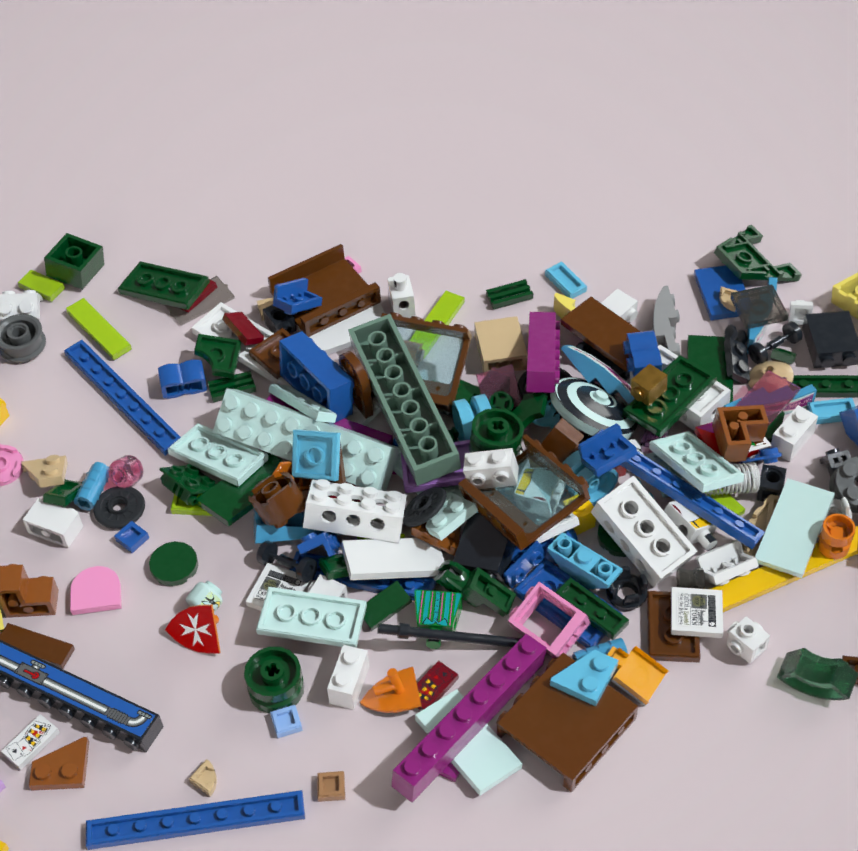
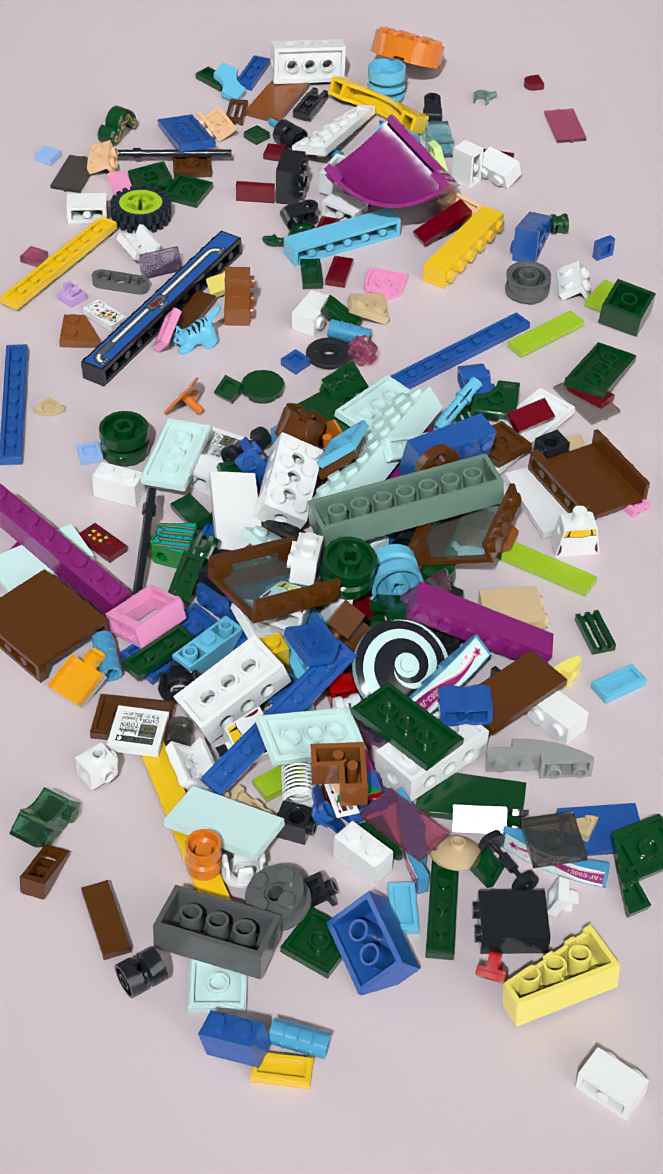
camera: 90 degrees right, 5 degrees down
(79, 660) = (166, 329): none -> bright pink tile
(81, 629) = (199, 332): none -> medium azure animal
(95, 591) = (241, 343): bright pink tile -> none
(178, 592) = (229, 389): none -> dark green tile
(205, 594) = (216, 399): light aqua head -> none
(211, 378) = (471, 387): none -> medium azure pin
(294, 297) = (567, 447): blue bracket -> none
(331, 786) = (22, 478): medium nougat tile -> none
(394, 692) = (100, 515): orange shield -> none
(498, 400) = (406, 586): dark green wheel -> none
(586, 677) = (73, 630): medium azure wing -> none
(648, 384) = (409, 694): pearl gold brick -> none

